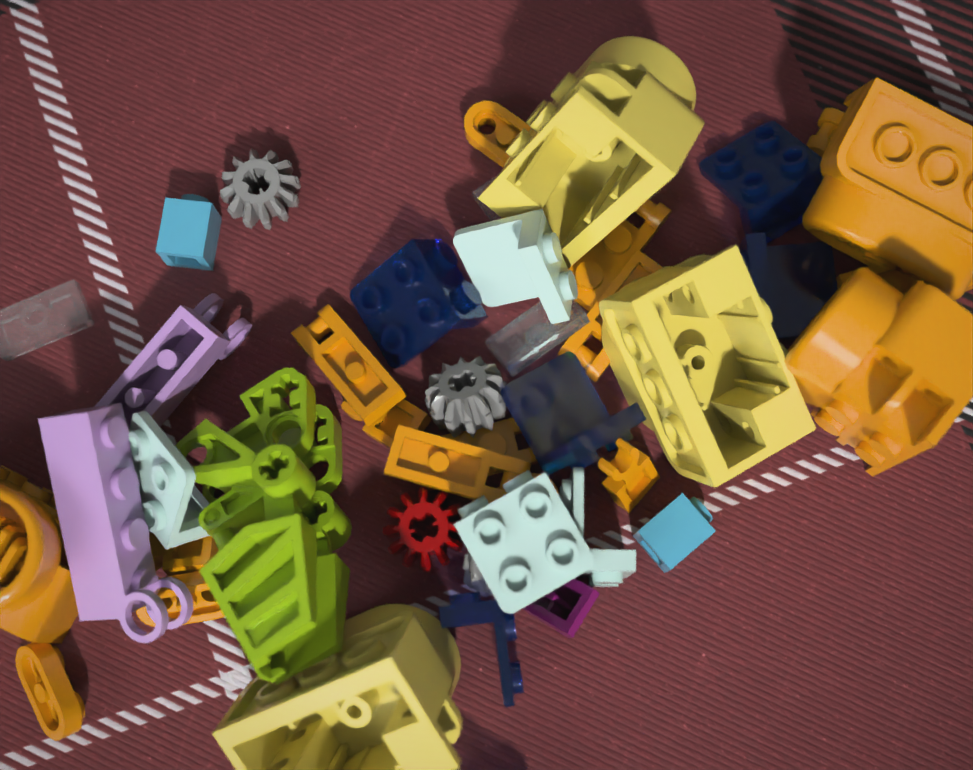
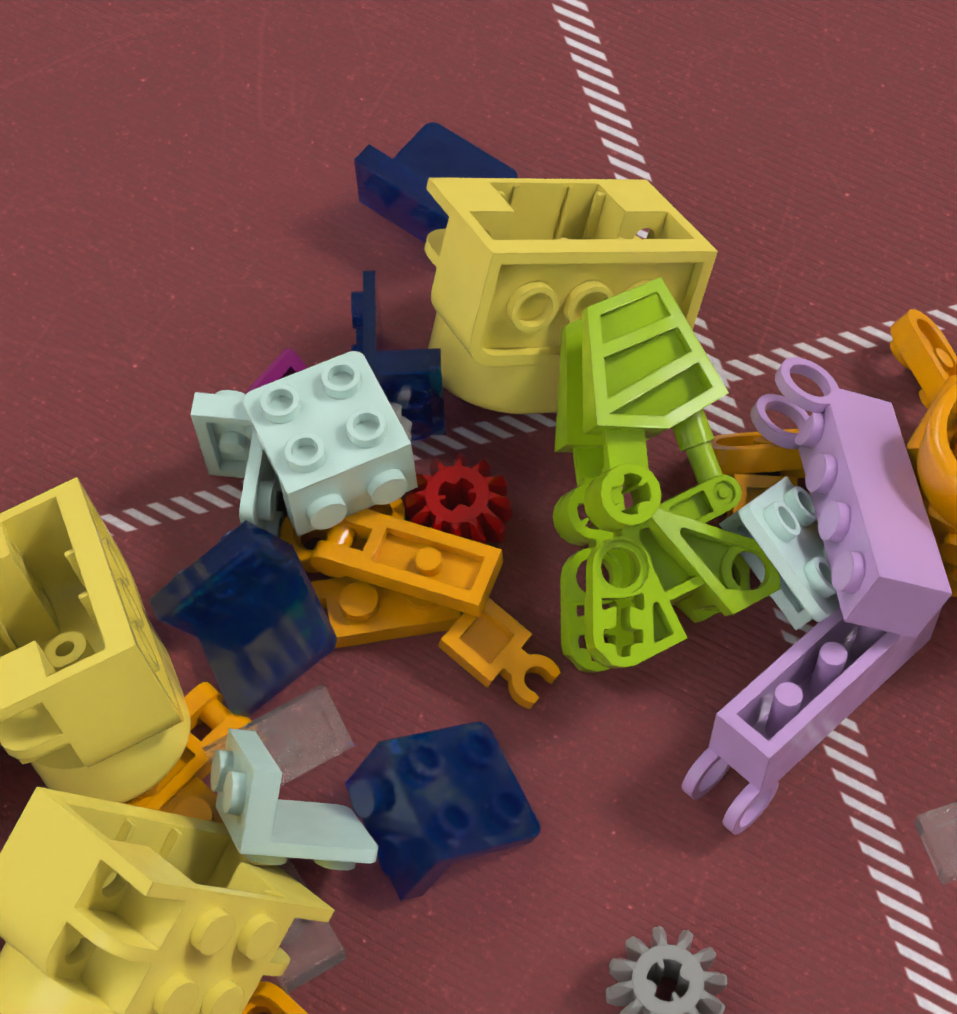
camera: 175 degrees left, 15 degrees down
(189, 232) = (774, 929): medium azure brick -> none
(349, 365) = (546, 715): light orange plate -> none
(466, 397) = (390, 678): light grey gear -> none
(628, 475) = (185, 547): light orange plate -> none
(675, 532) = (140, 483): medium azure brick -> none

